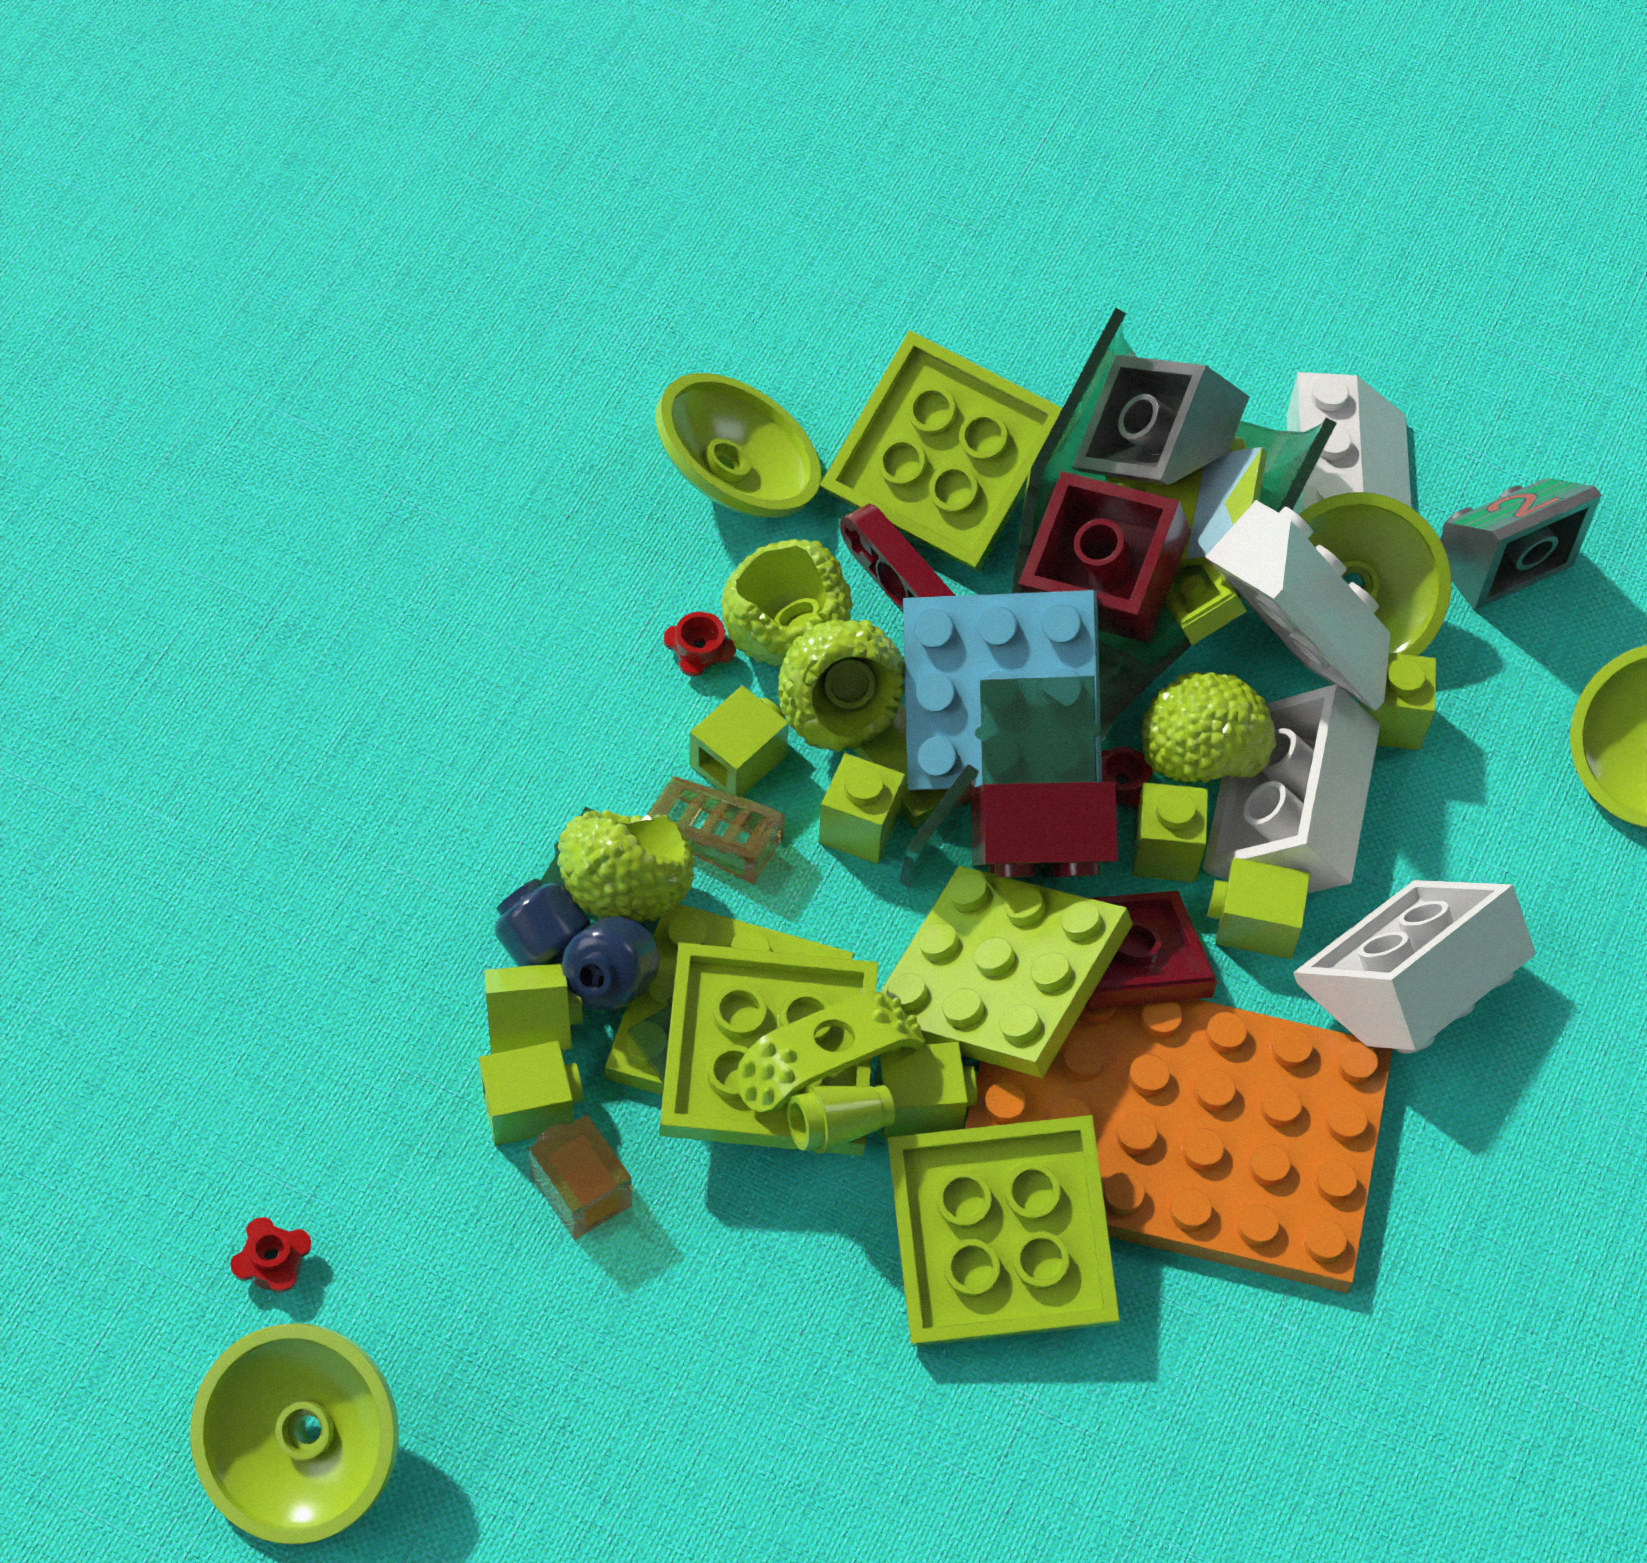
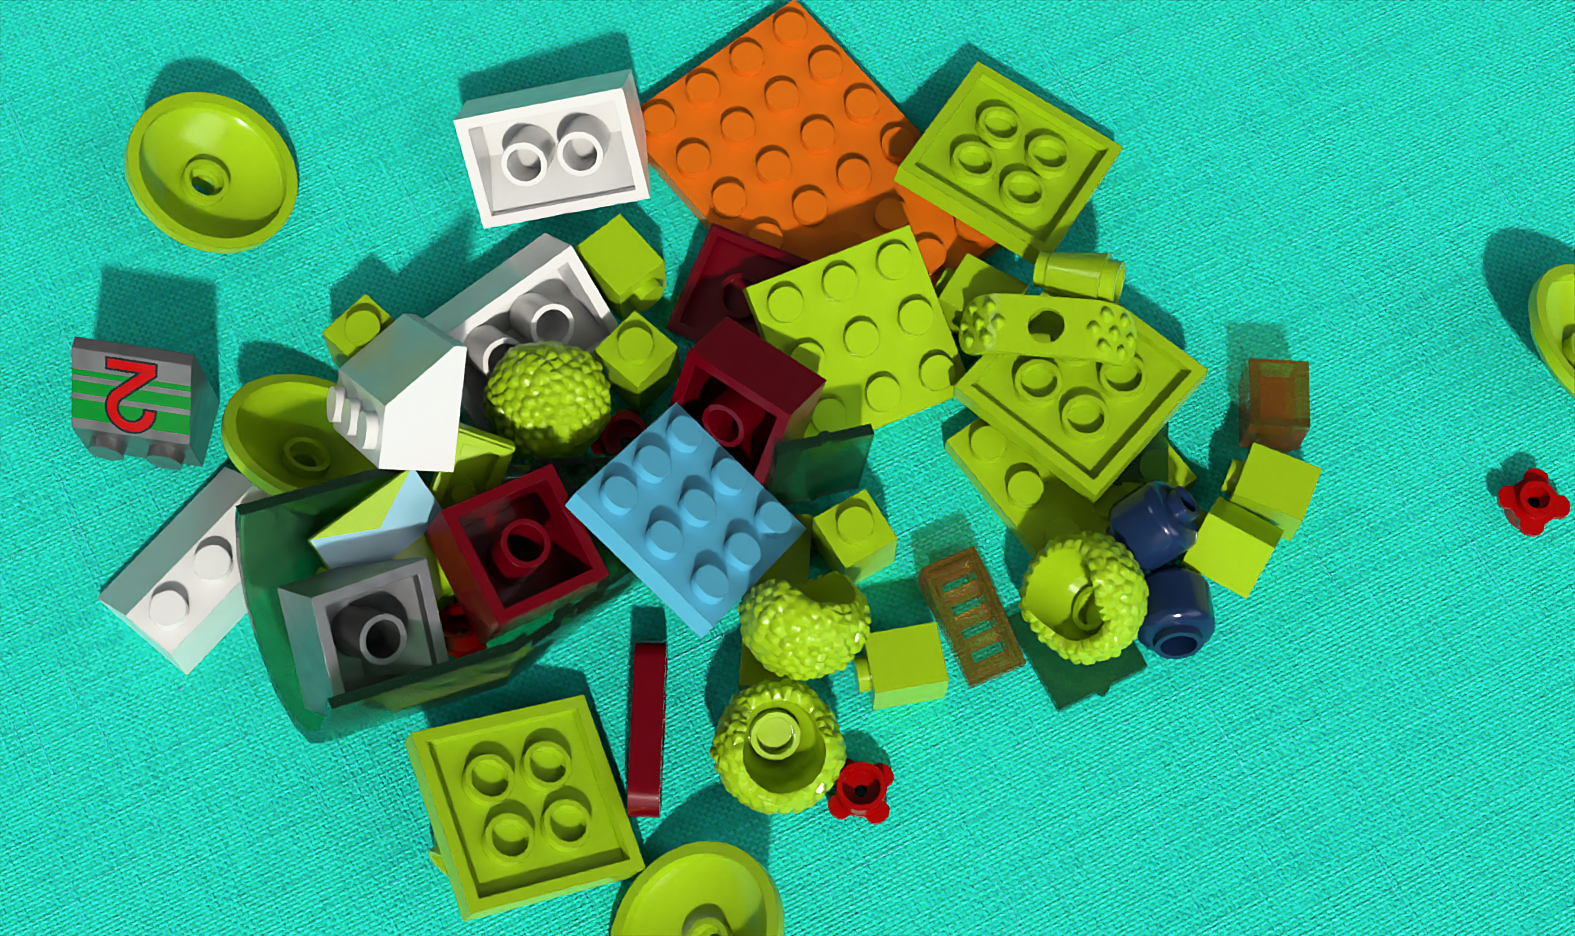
camera: 140 degrees left, 10 degrees up
(1038, 730) = (696, 453): clear green piece -> none

